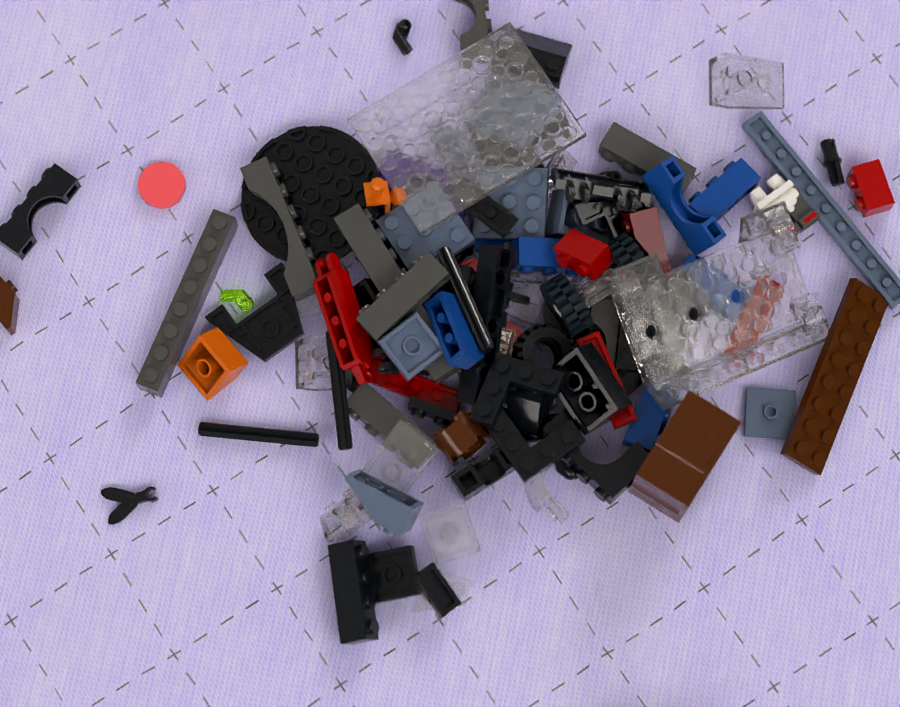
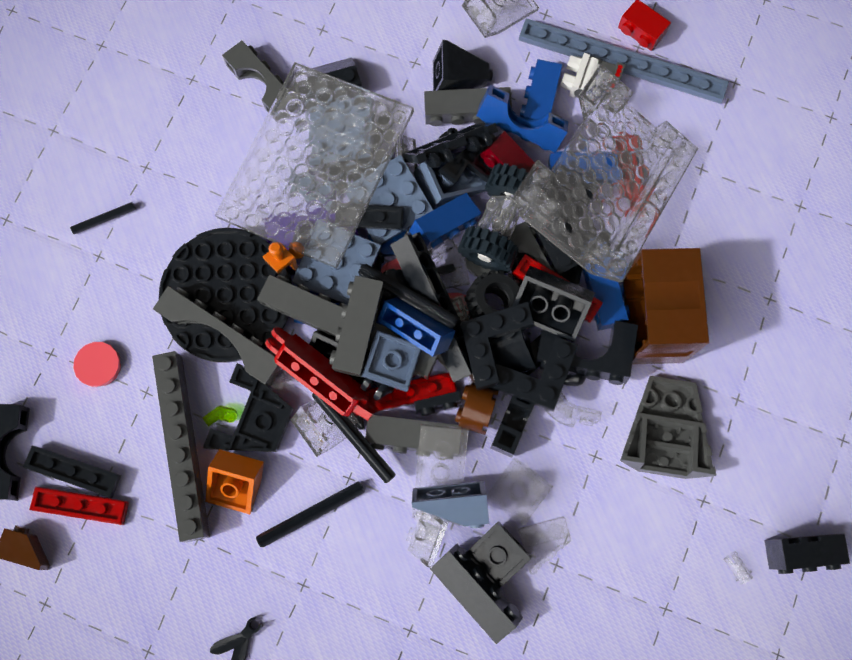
camera: 35 degrees left, 0 degrees up
(70, 298) = (79, 505): none -> red tile
(83, 265) = (72, 471): none -> black plate
(249, 55) = (92, 222): none -> black bar
(400, 36) = (214, 130): black arm -> none
(436, 590) = (542, 545): black tile -> none
(583, 254) = (475, 201): red brick -> none
(617, 570) = (669, 432): none -> dark grey wedge
(661, 122) = (459, 69): none -> black slope
(769, 412) = (691, 231): sand blue plate -> none
(832, 161) = (602, 24): black axle -> none
(834, 377) = (720, 177): reddish brown plate -> none

